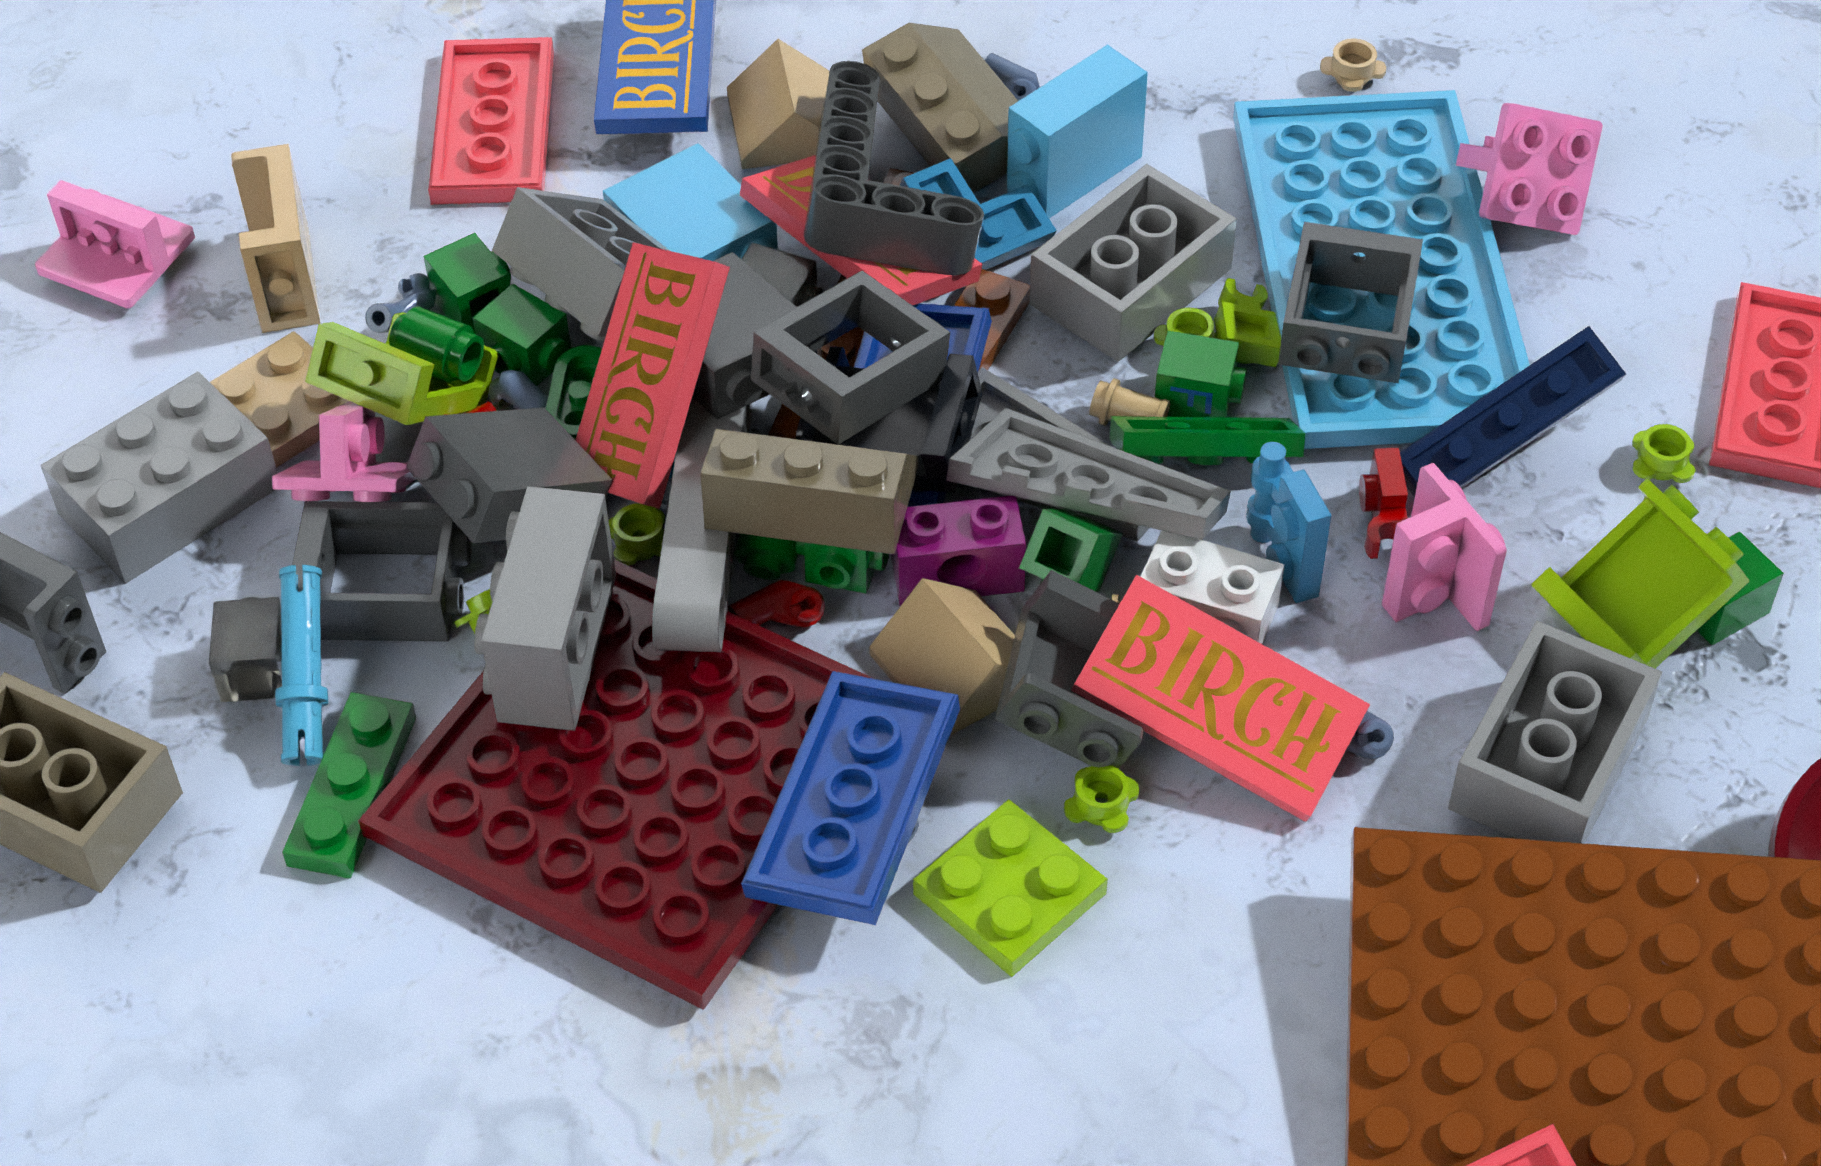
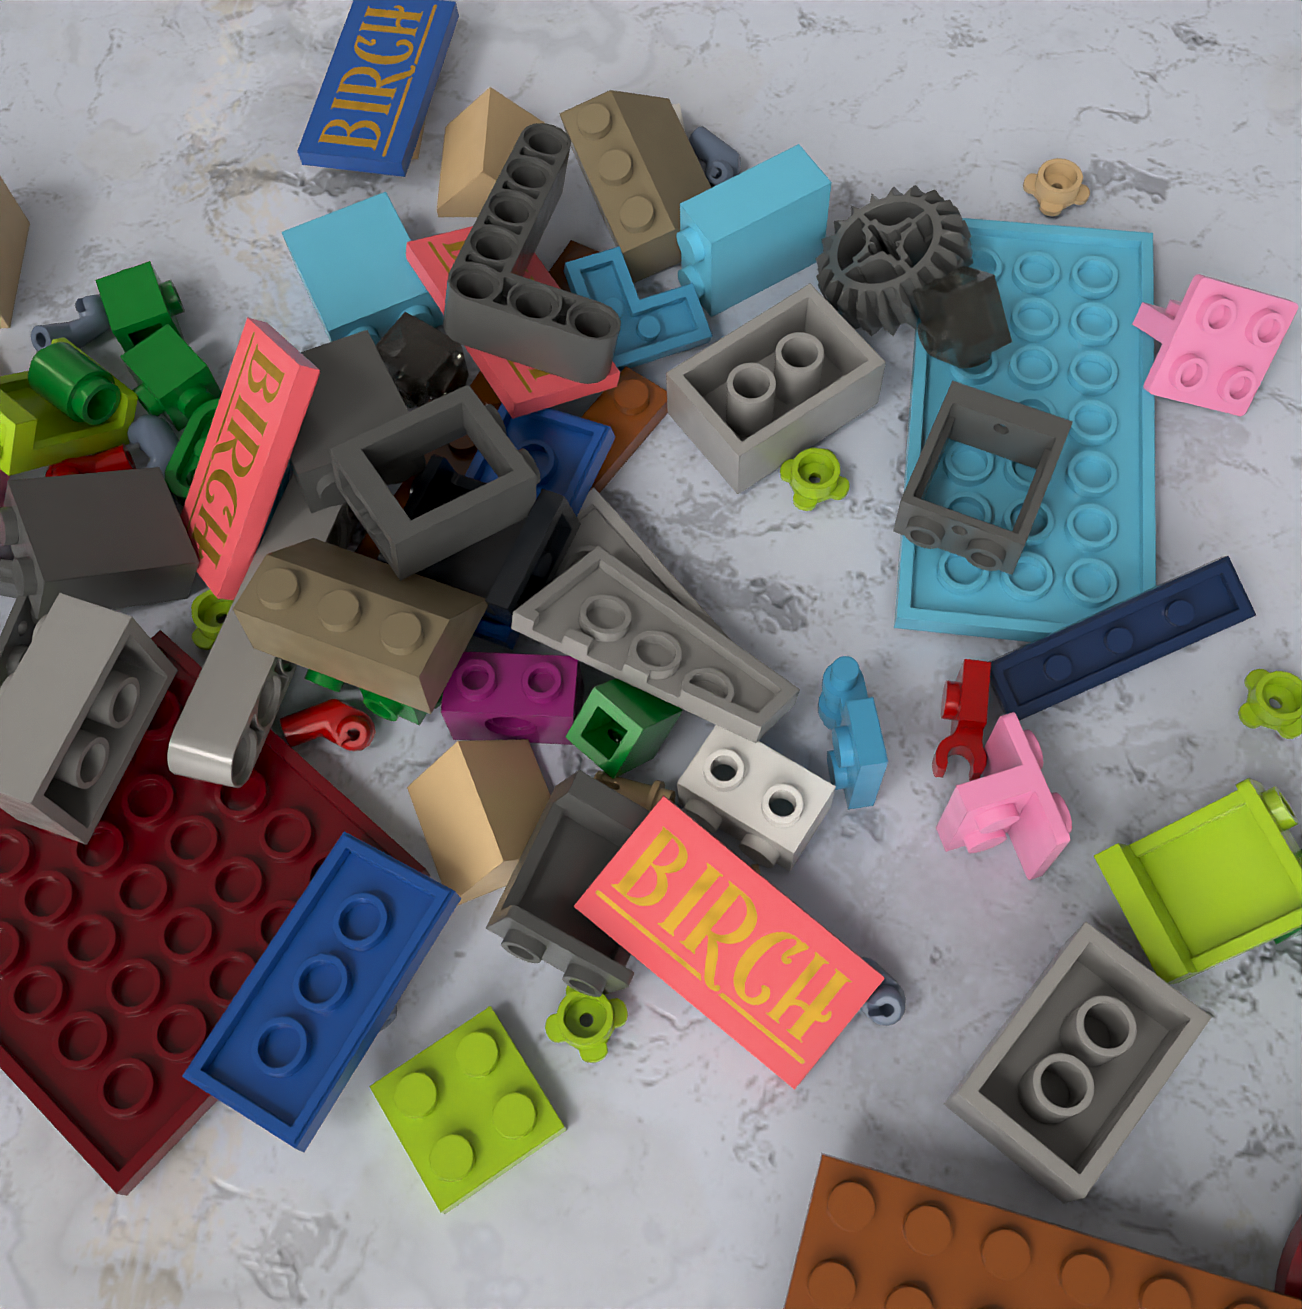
camera: 15 degrees right, 15 degrees up
(491, 119) = (221, 134): coral tile -> none
(570, 251) = (221, 280): light grey brick -> none
(1114, 400) = (732, 553): tan pin -> none
(1199, 375) = (809, 532): green brick -> none
(1203, 438) = (799, 607): green plate -> none
(1221, 136) = (889, 253): none -> dark grey gear
(1244, 321) = (871, 477): lime plate -> none
(1298, 173) = (962, 317): none -> clear smoke brick

